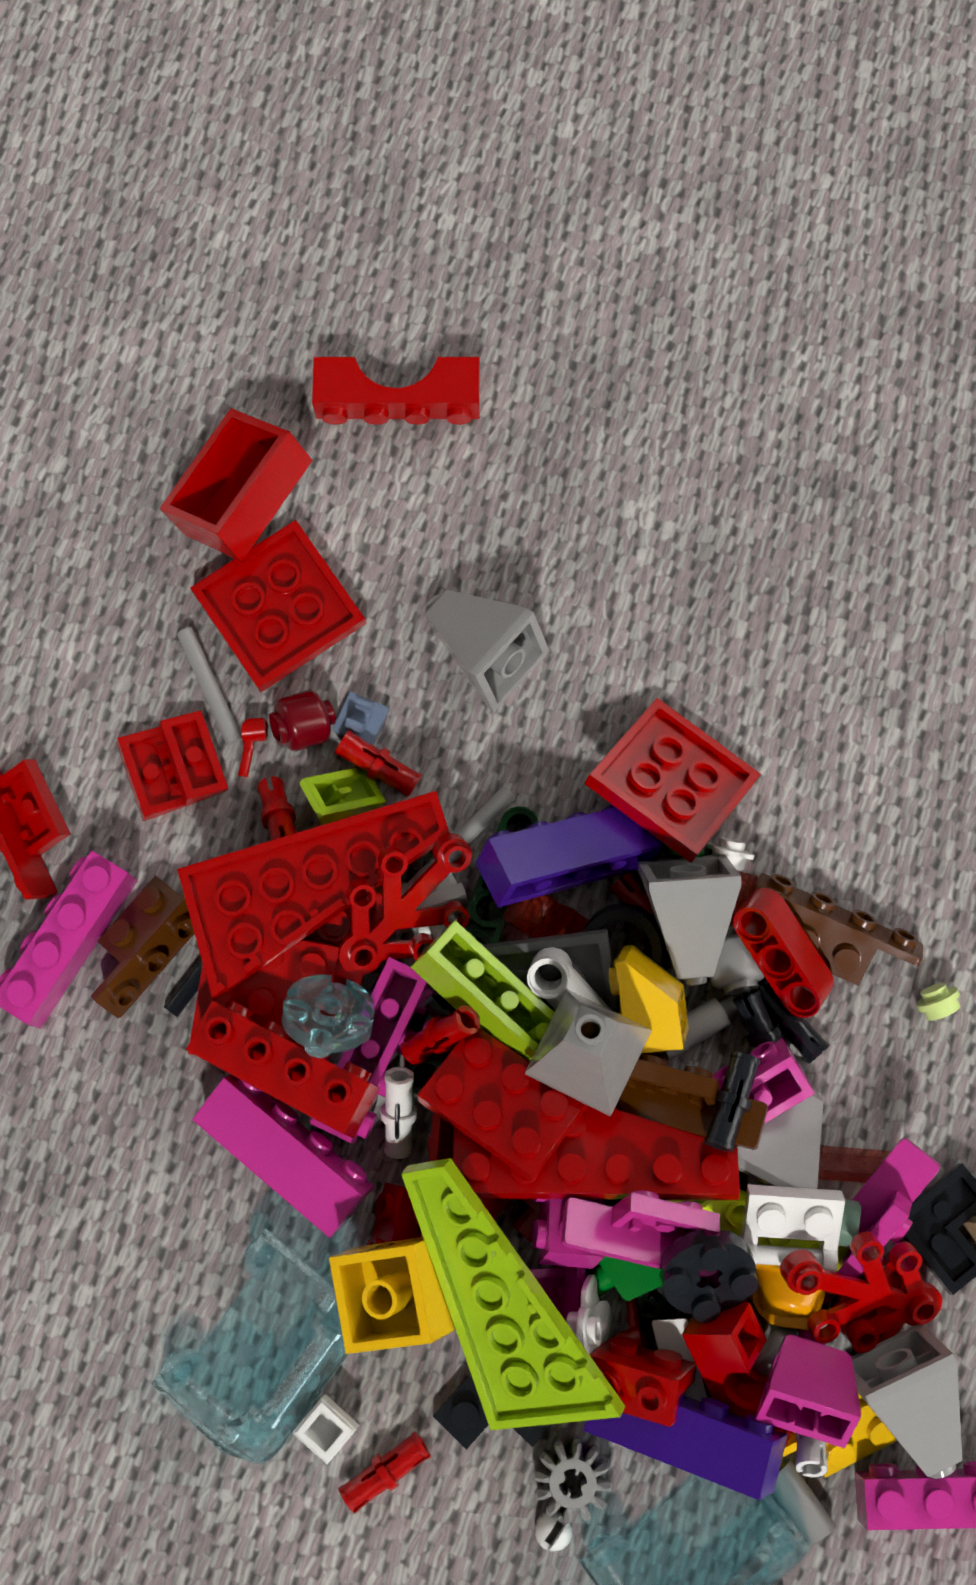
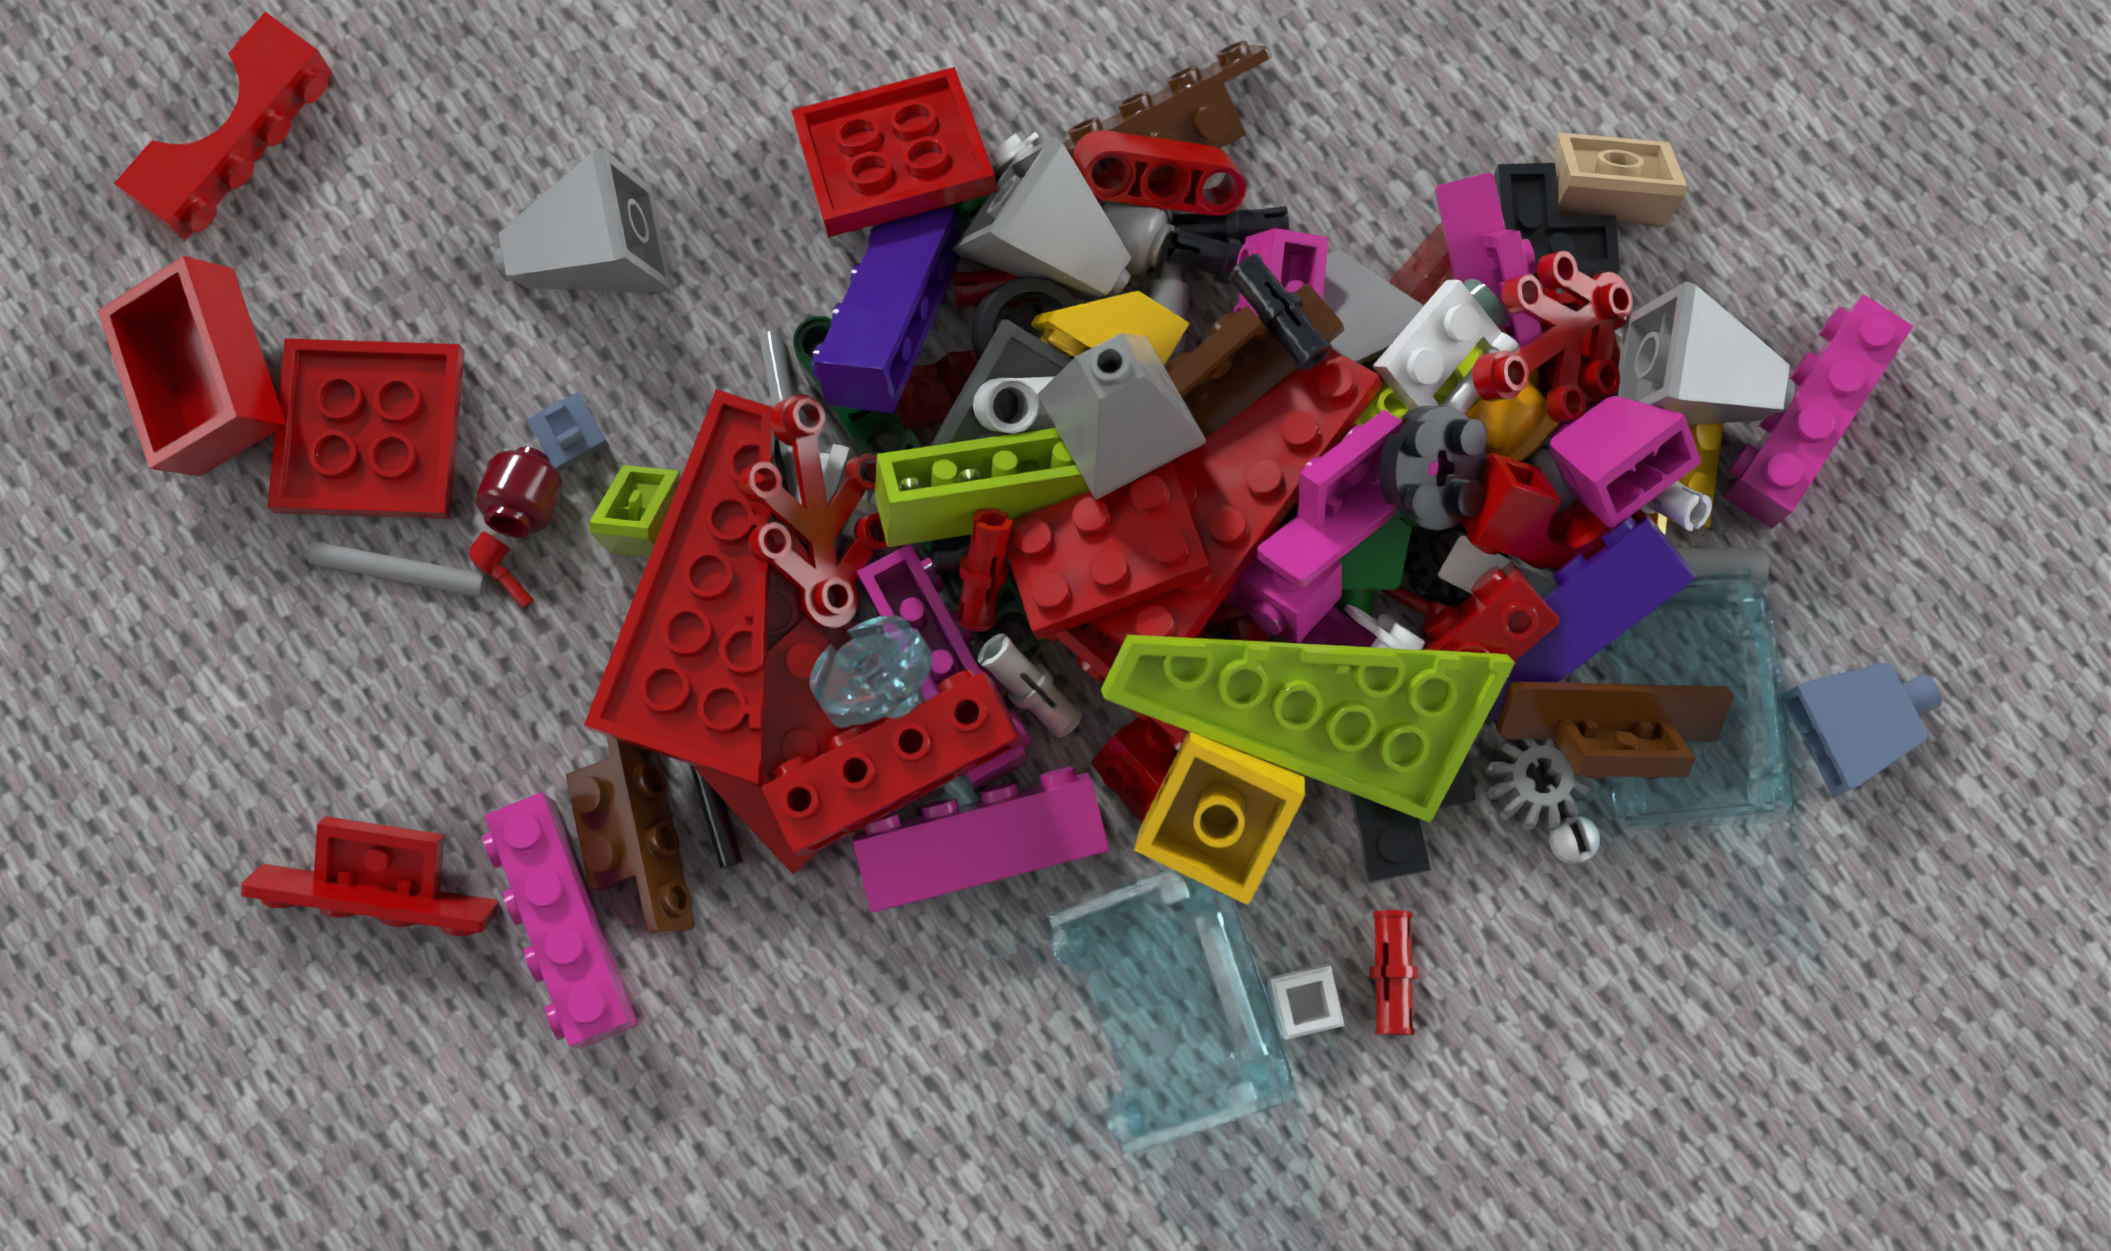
camera: 60 degrees left, 0 degrees up
(171, 765) = (454, 672): red slope -> none
(277, 814) = (601, 588): red pin -> none
(378, 763) = (632, 445): red pin -> none
(637, 1514) = (1617, 726): none -> reddish brown bracket
(938, 1001) = (1321, 68): yellowish green plate -> none

